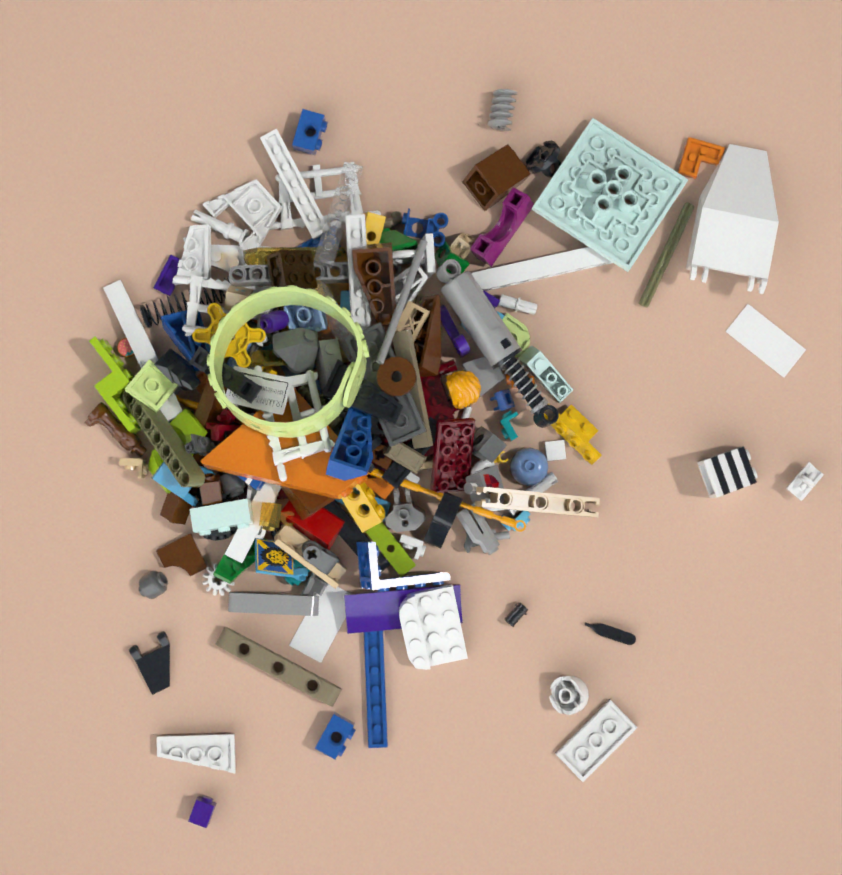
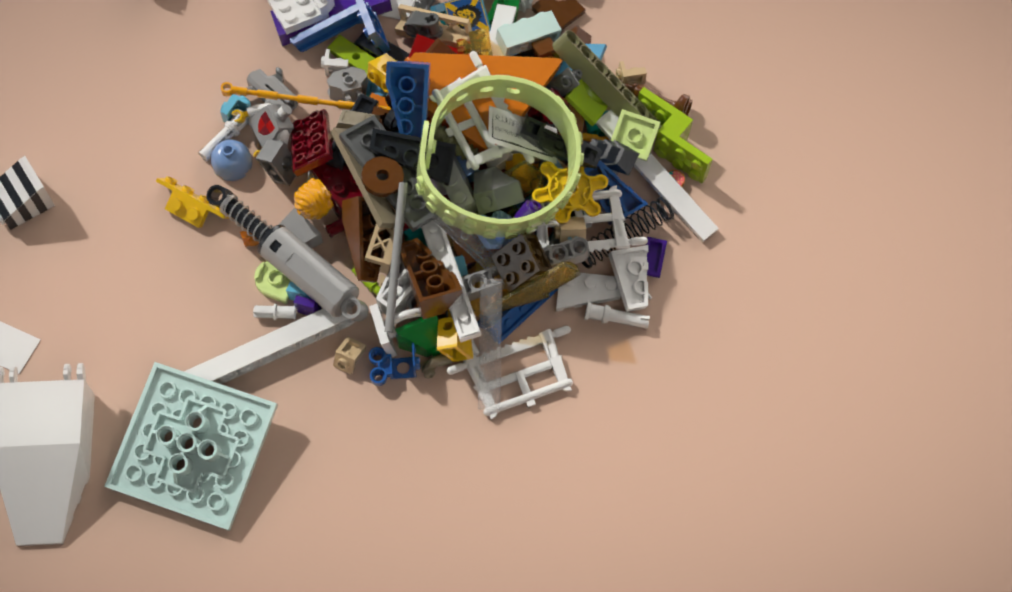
camera: 160 degrees right, 20 degrees down
(253, 205) = (586, 343): white wing -> none
(294, 183) = (549, 374): white plate -> none
(307, 121) = (548, 423): blue brick -> none
(443, 519) = (304, 76): black beam -> none
(450, 255) = (359, 333): green bracket -> none
(458, 340) = (326, 249): dark purple beam -> none
(495, 177) = (324, 436): reddish brown slope -> none
(501, 108) = (334, 513): light grey piece -> none
(503, 399) = (270, 213): blue tile -> none
(507, 430) = (261, 189): teal bracket -> none
(515, 209) = (299, 398): magenta arch -> none
(516, 614) = (218, 29): black pin -> none
(526, 501) = (214, 116): tan piece -> none
(542, 158) = (276, 467): black tile -> none
(545, 373) = (232, 249): light aqua slope -> none
(555, 450) = (206, 180): white tile -> none
(612, 633) = (118, 34): black piece -> none
(666, 254) = (117, 402): olive axle -> none
(697, 152) = (100, 524): orange tile -> none

